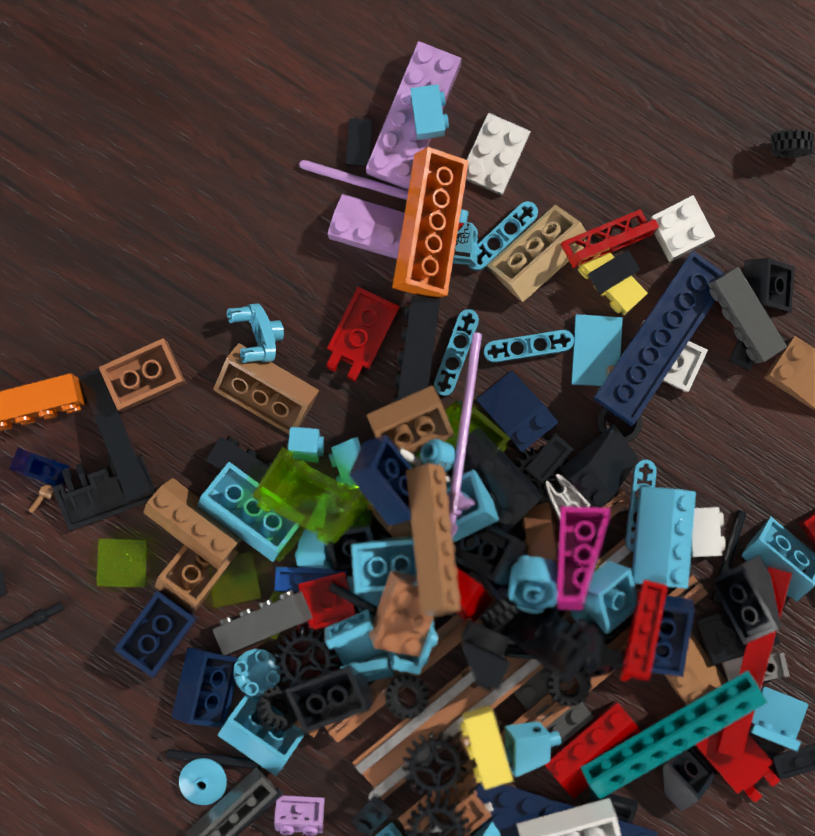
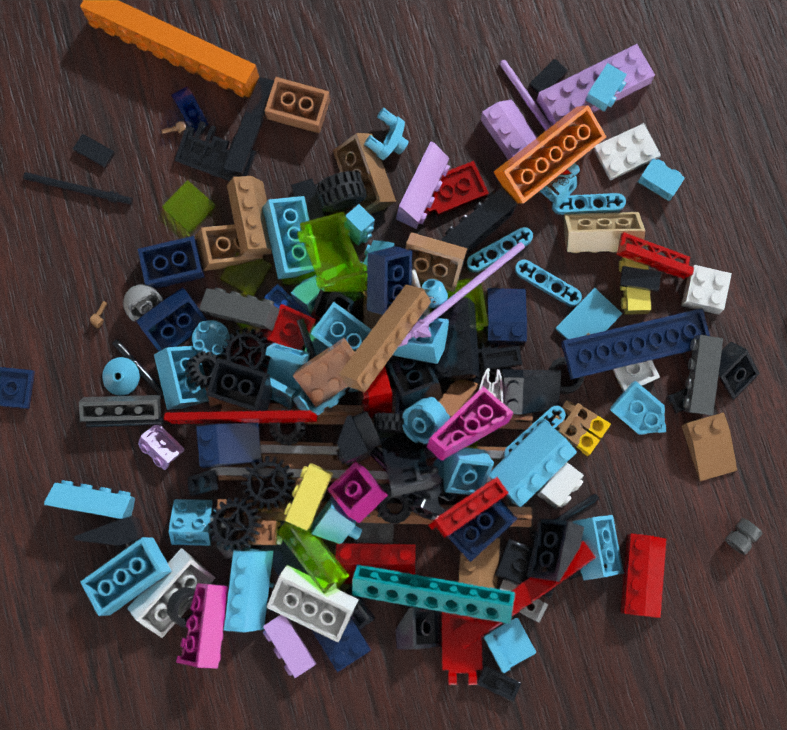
camera: 40 degrees right, 5 degrees down
(130, 749) = (95, 318): none -> medium nougat hand
(159, 695) = (140, 300): none -> light grey cylinder
(261, 427) = (340, 191): none -> black tyre
(335, 356) = (422, 186): none -> lavender slope
(358, 725) = (240, 417): none -> red tile
(367, 761) = (228, 444): none -> dark blue slope
(527, 703) = (357, 492): none -> dark pink brick
(538, 796) = (314, 557): none -> clear neon green brick
(551, 154) = (661, 179): none -> medium azure brick
(667, 455) = (582, 427): none -> medium nougat hips
(715, 397) = (640, 410): none -> medium azure tile

